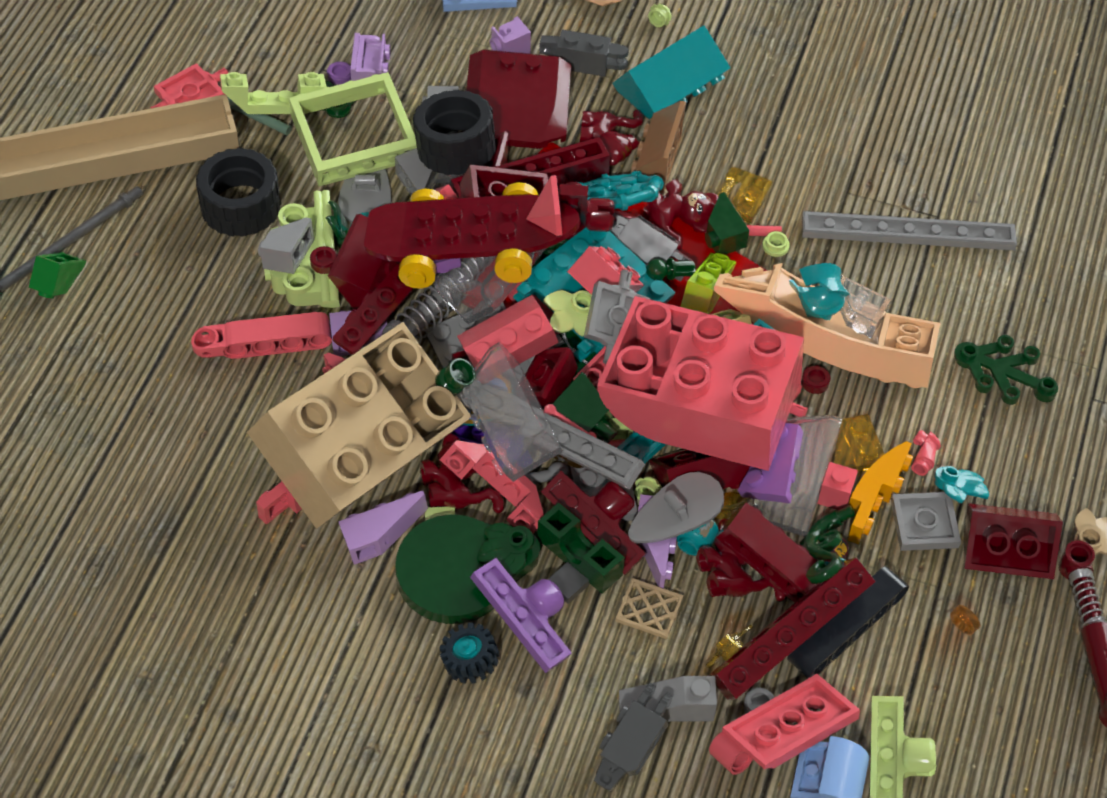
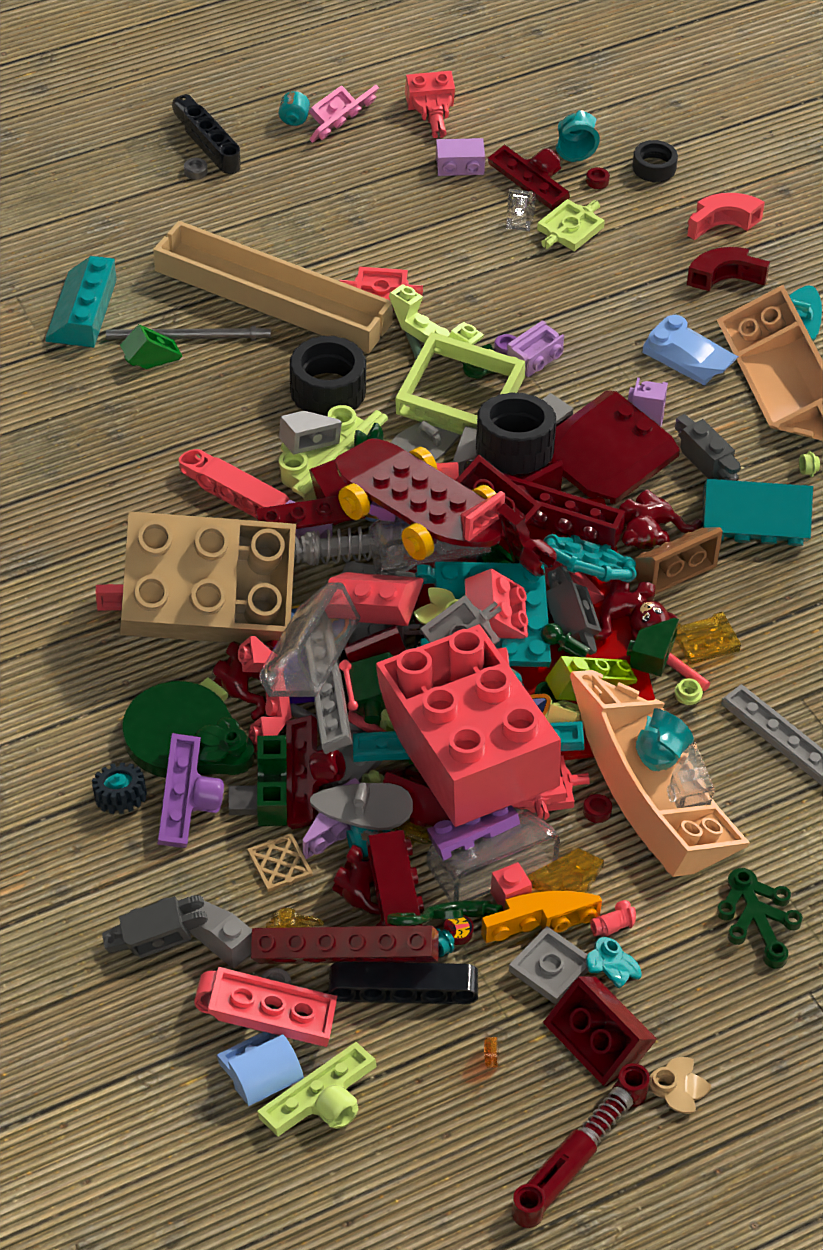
camera: 45 degrees right, 5 degrees down
(322, 259) = (322, 455): dark red tile -> none
(377, 529) = (156, 664): lavender slope -> none
(456, 376) = (297, 585): dark green wheel -> none

